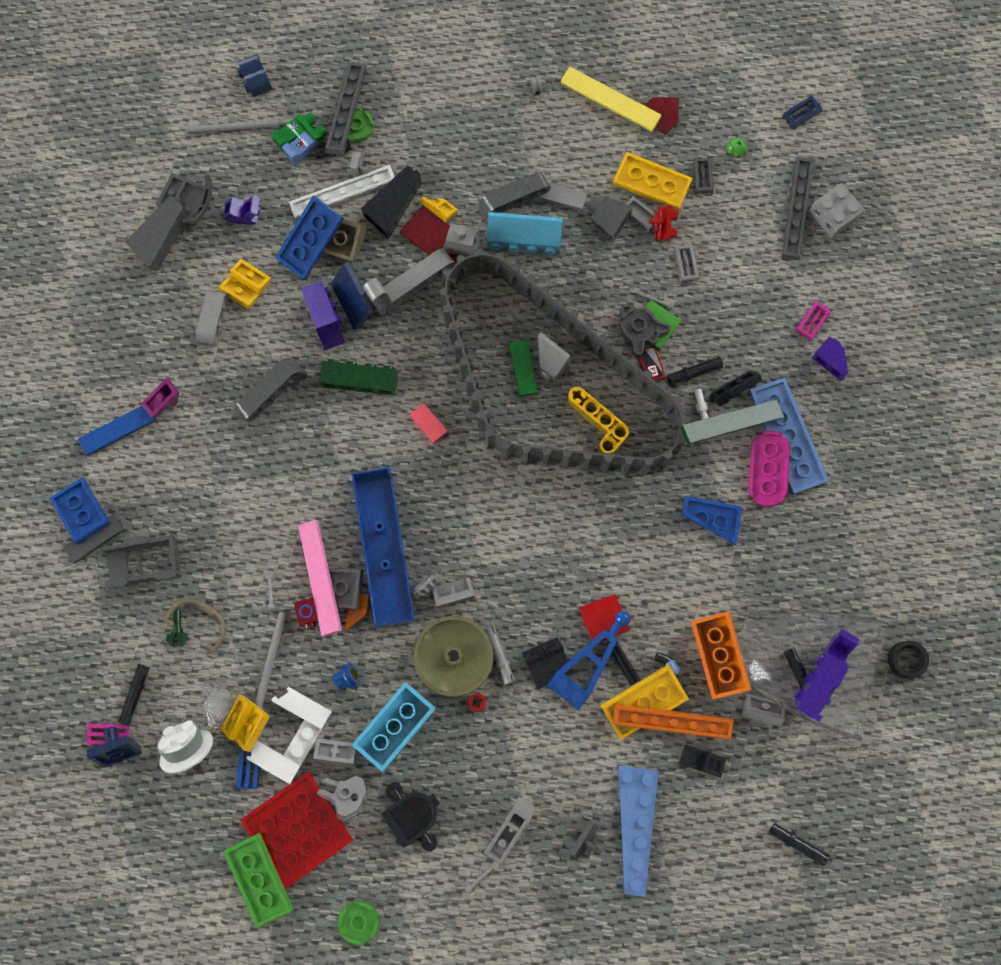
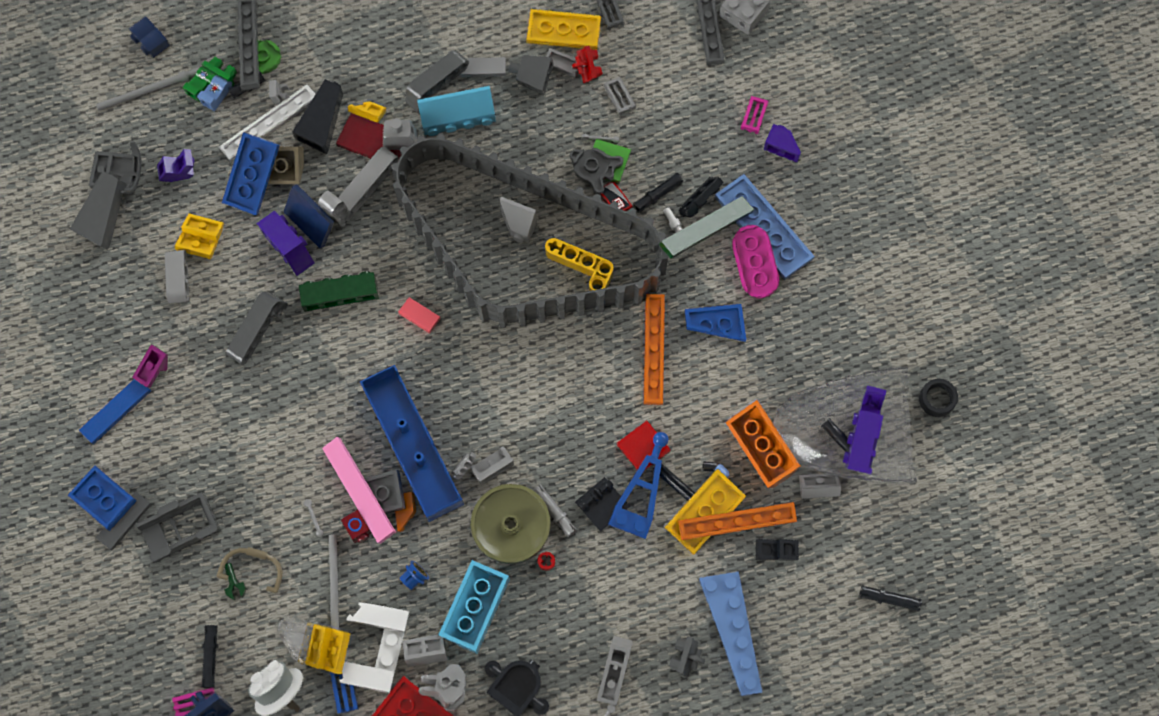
camera: 15 degrees left, 5 degrees down
(523, 368) = (494, 237): green tile -> none
(643, 525) = (654, 349): none -> orange tile

